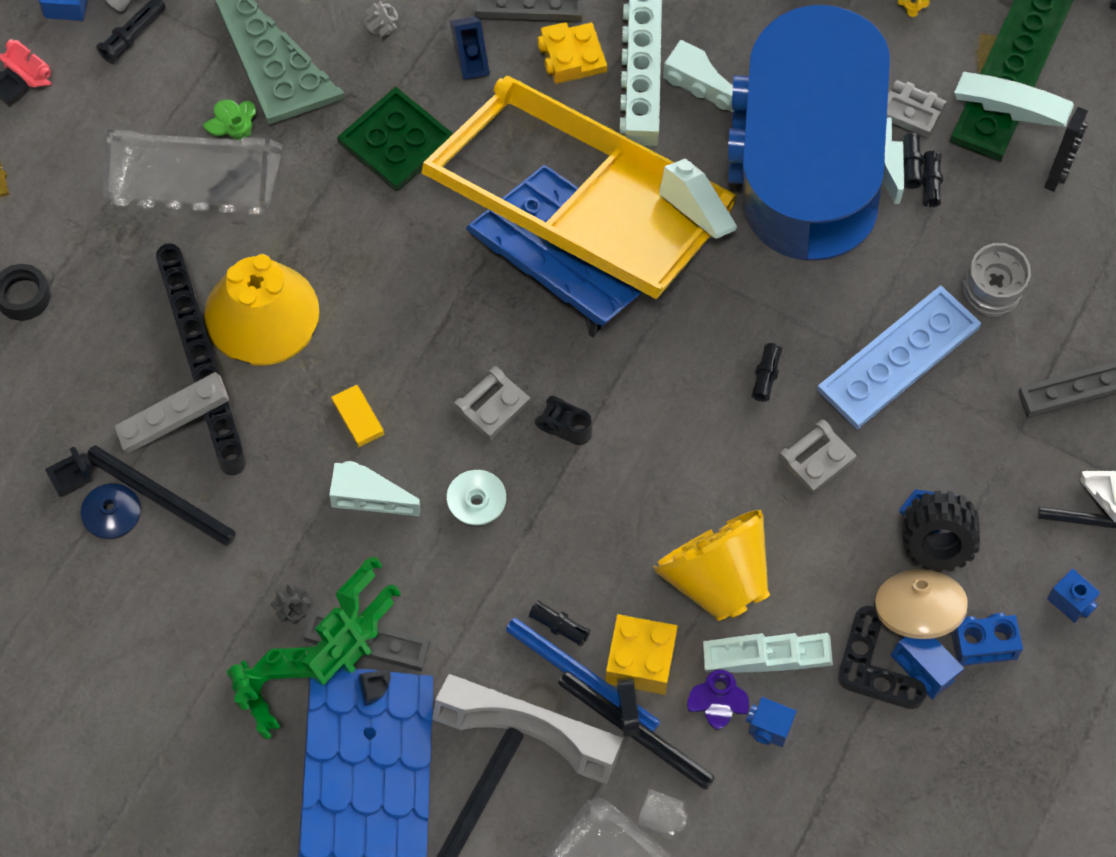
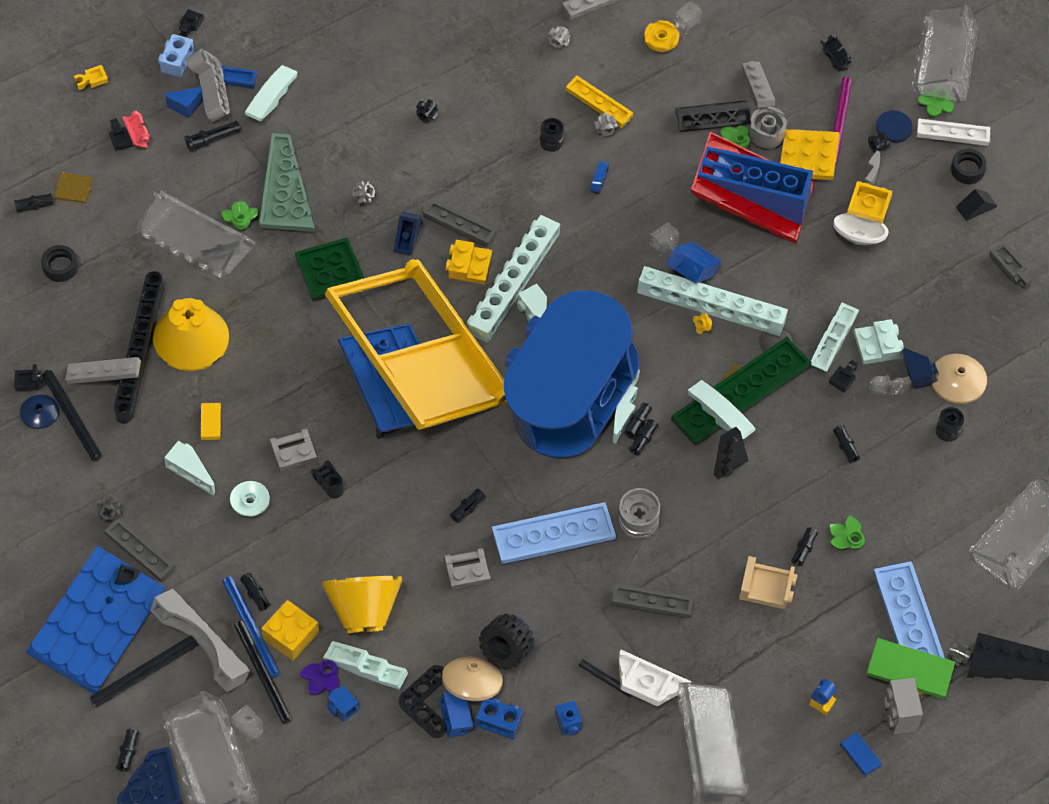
camera: 25 degrees right, 5 degrees down
(341, 646) = (118, 539): green piece -> none
(628, 706) = (262, 654): black beam -> none
(695, 197) = (484, 382): light aqua slope -> none
(912, 114) = (655, 392): light grey plate -> none

